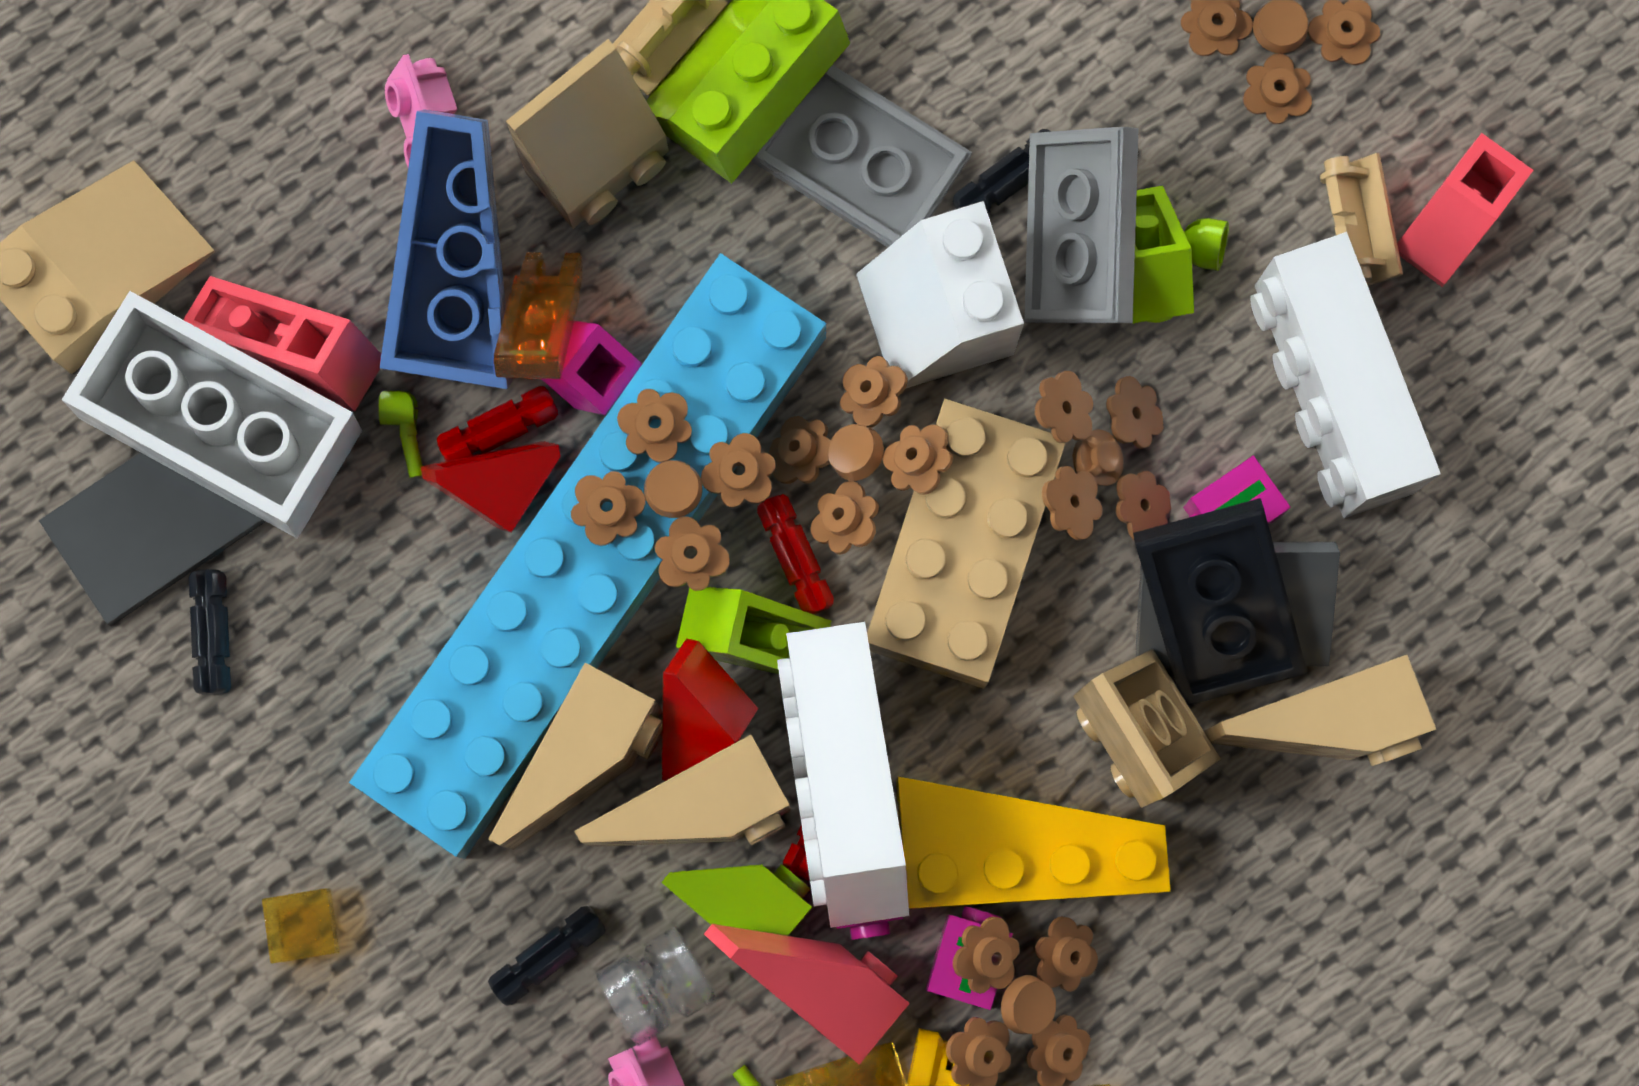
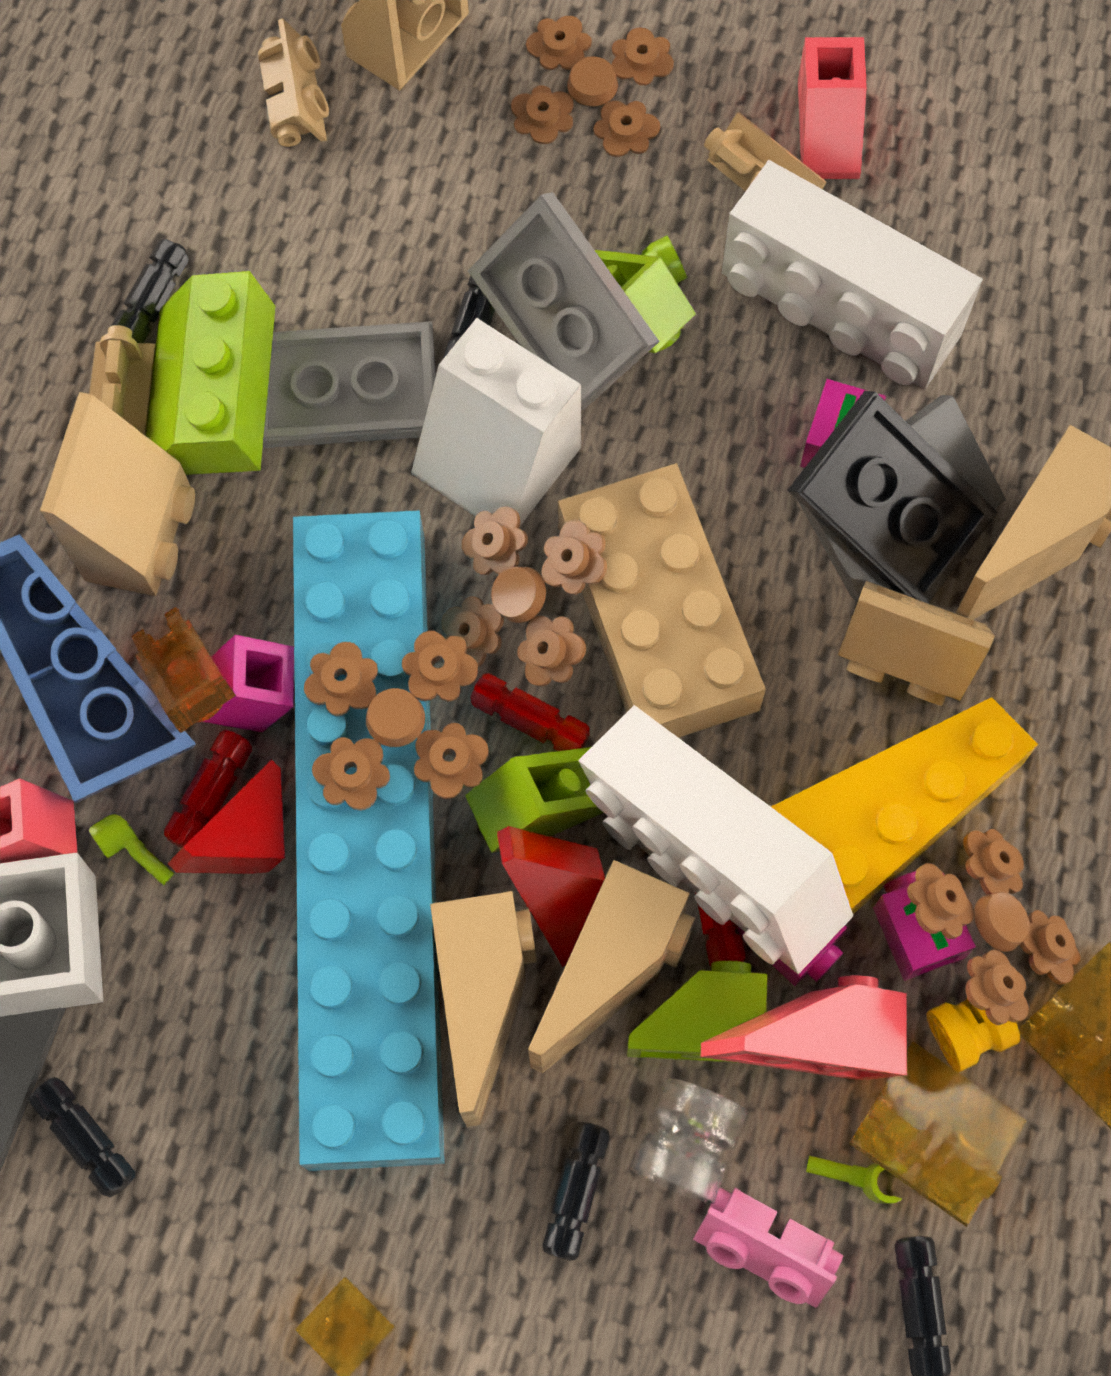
camera: 35 degrees left, 10 degrees down
(1099, 456) = (709, 466): medium nougat plant -> none

